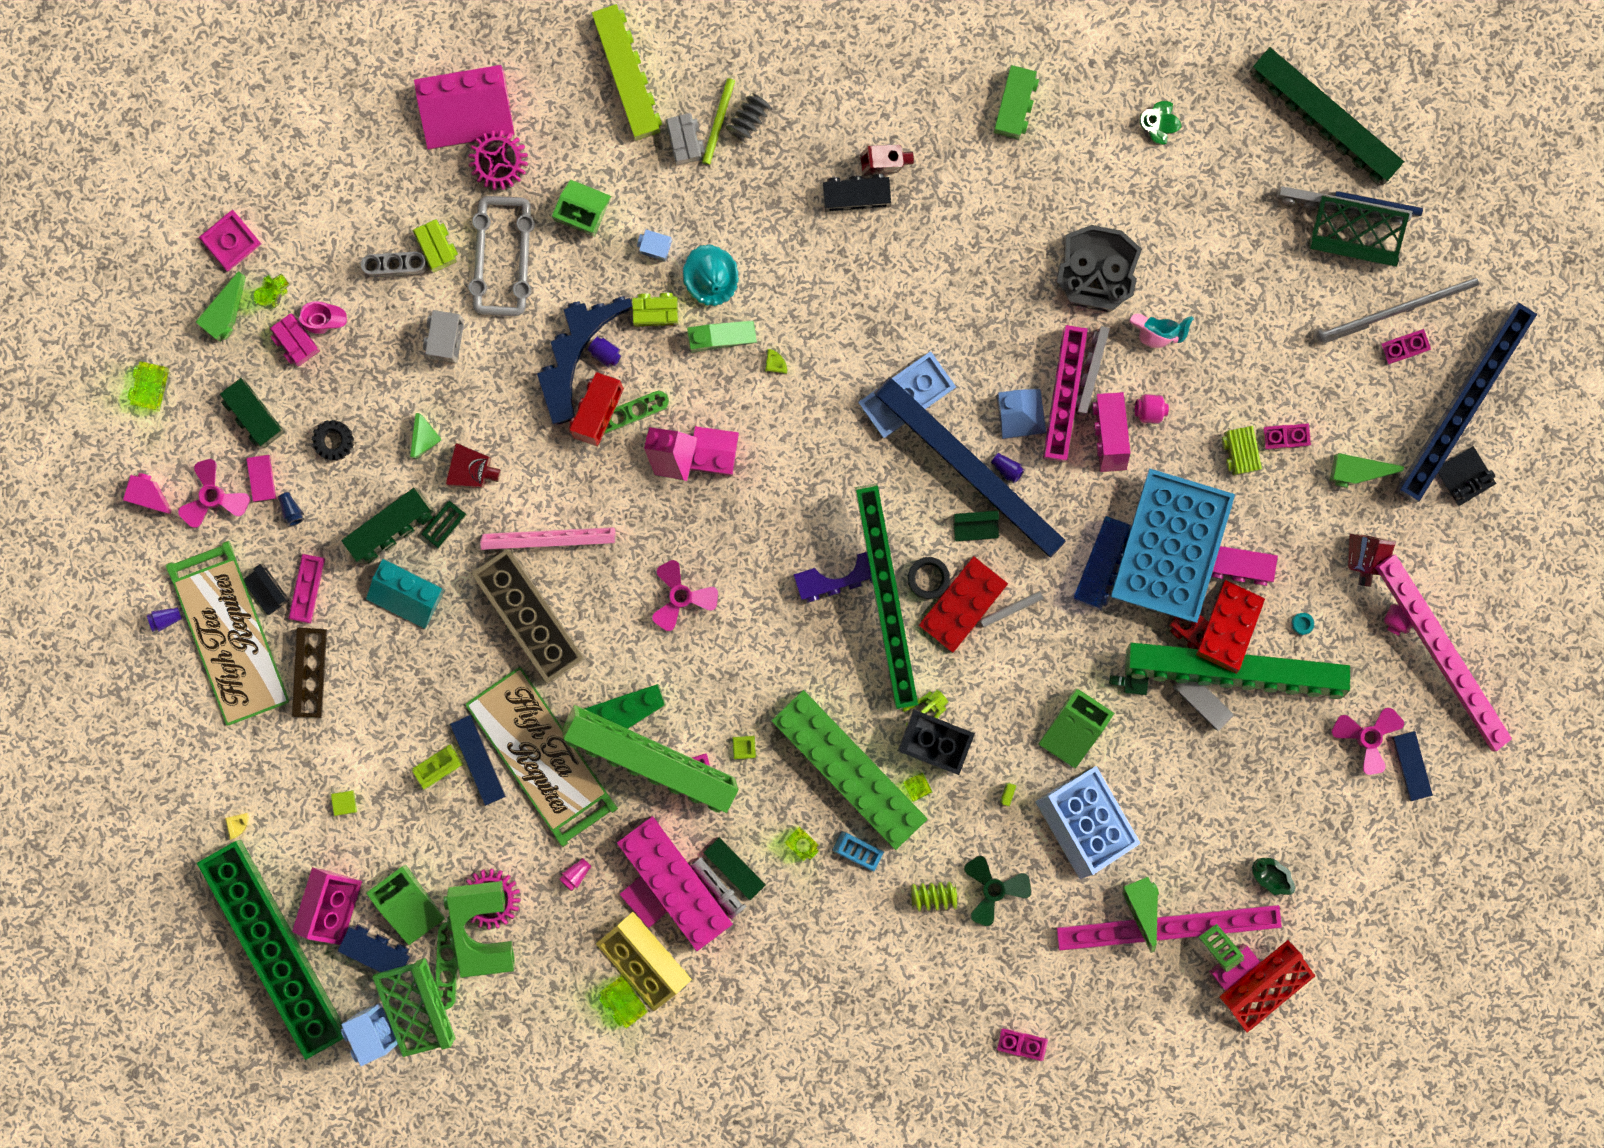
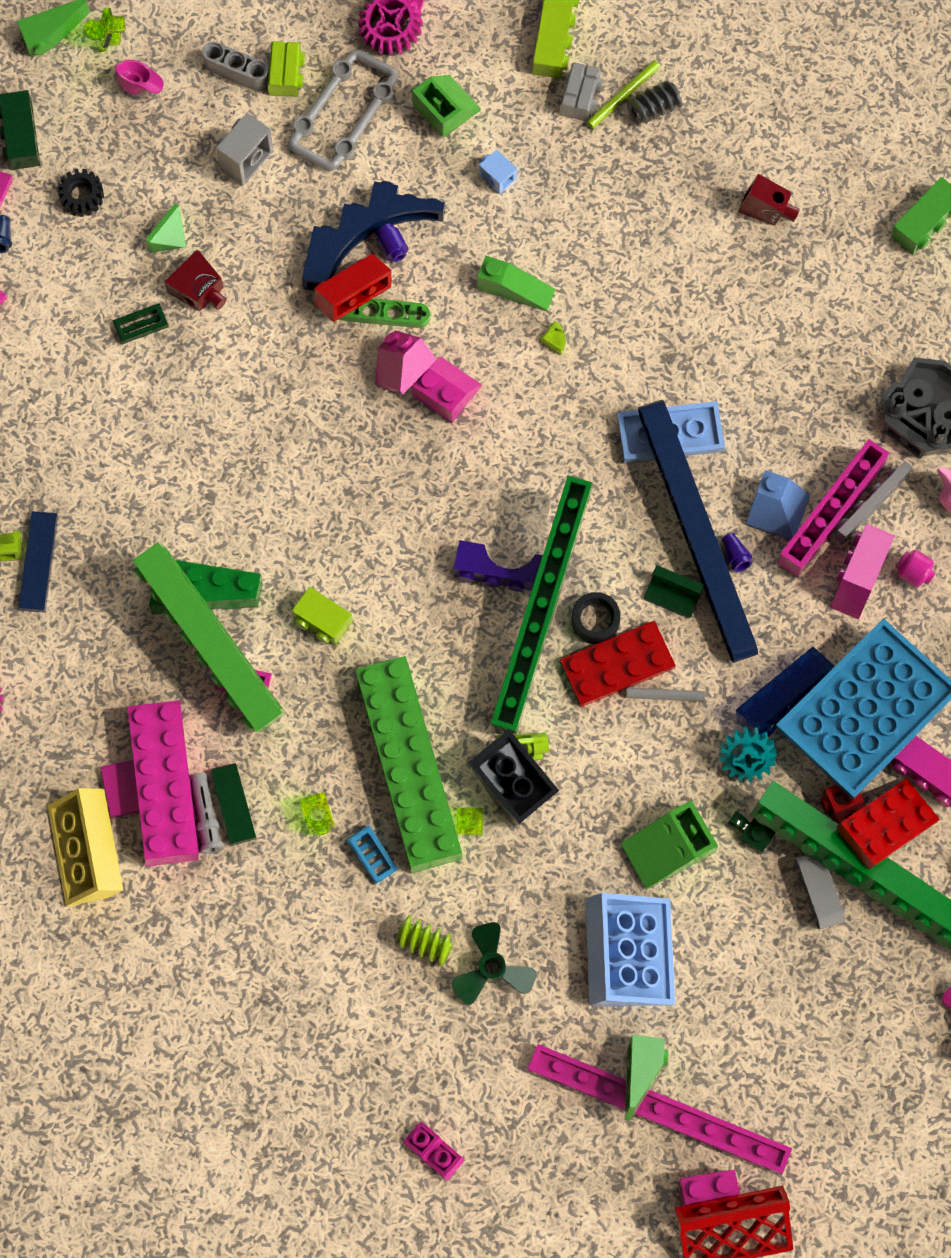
camera: 30 degrees right, 15 degrees down
(294, 340) = (100, 85): dark pink brick -> none
(388, 526) = (85, 292): dark green brick -> none
(404, 593) = (63, 365): teal slope -> none
(528, 616) = (171, 446): dark tan brick -> none
(537, 755) = (102, 589): flag -> none
(548, 538) = (234, 385): bright pink tile -> none
(575, 874) = (67, 723): dark pink cone -> none
(623, 1002) = (39, 877): clear neon green brick -> none
(655, 310) = (463, 230): lime brick -> none
(668, 614) = (310, 518): dark pink piece -> none
(710, 275) = (536, 223): teal piece -> none
(720, 689) = (321, 616): none -> lime brick
(744, 747) = (313, 688): lime tile -> none
(857, 193) = (723, 221): black brick -> none
(1008, 794) = (560, 876): lime tile -> none
(1099, 627) = (734, 755): none -> teal gear
(1230, 963) = (709, 1173): bright green slope -> none
(1273, 876) = (801, 1114): dark green arm -> none

